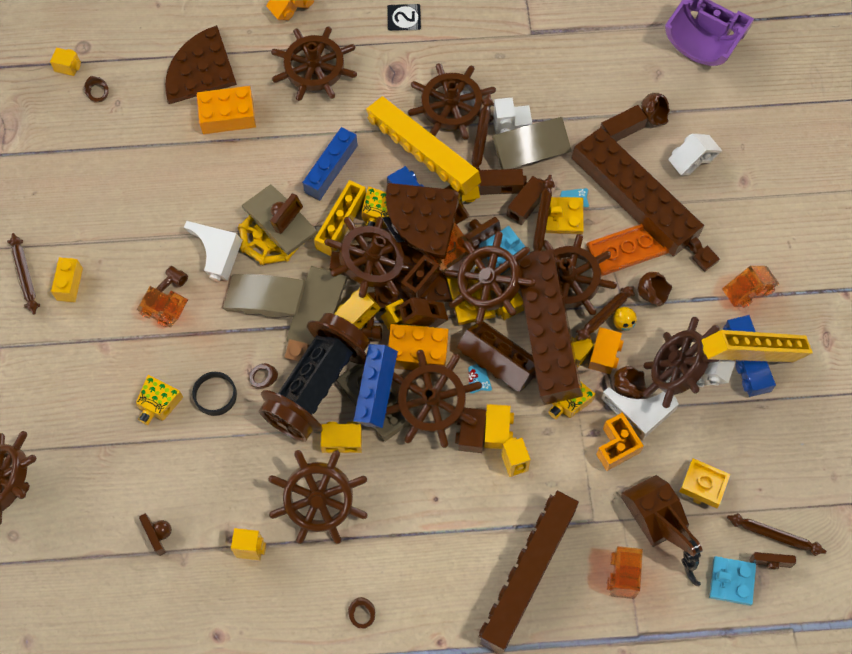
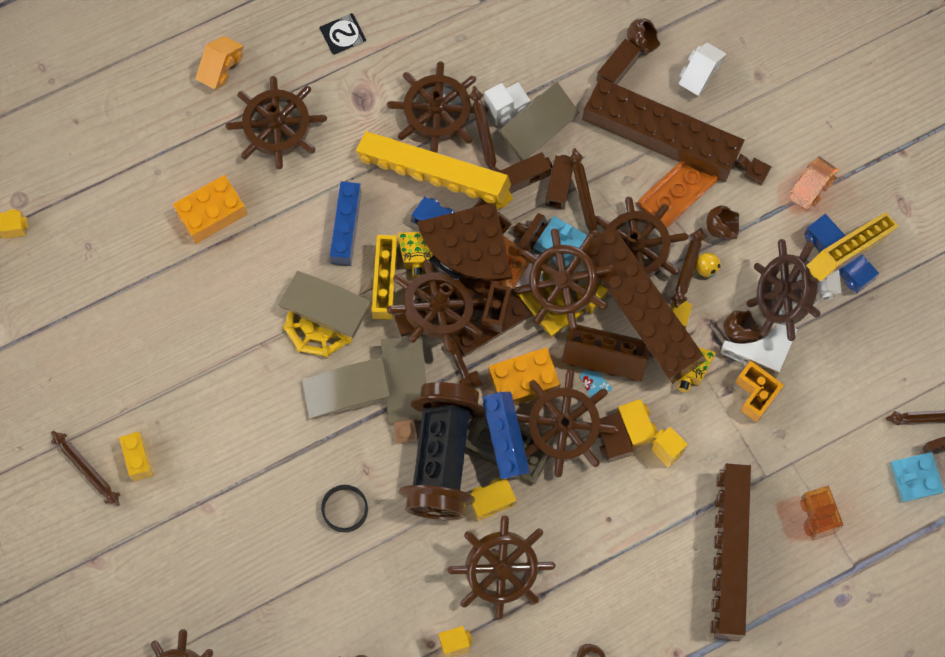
camera: 25 degrees left, 5 degrees up
(91, 81) = (51, 233): reddish brown piece -> none
(157, 400) = (291, 540): yellow torso -> none
(162, 307) = (251, 444): clear orange brick -> none
(175, 276) = (243, 406): reddish brown brick -> none
(199, 67) = (156, 173): reddish brown plate -> none
(220, 249) = (278, 357): white arch -> none
(273, 375) = (392, 472): reddish brown piece -> none
(285, 212) = (331, 296): reddish brown tile -> none
(358, 309) = (447, 365): yellow brick -> none
(392, 314) = (487, 353): yellow brick -> none
(423, 312) = (514, 341): reddish brown brick -> none
(565, 216) = (605, 182): yellow hinge -> none
(577, 193) = (603, 159): medium azure sticker -> none
(605, 351) = (705, 305): light orange brick -> none
(663, 519) = (830, 445): reddish brown slope -> none
(704, 483) = (853, 396): yellow hinge -> none

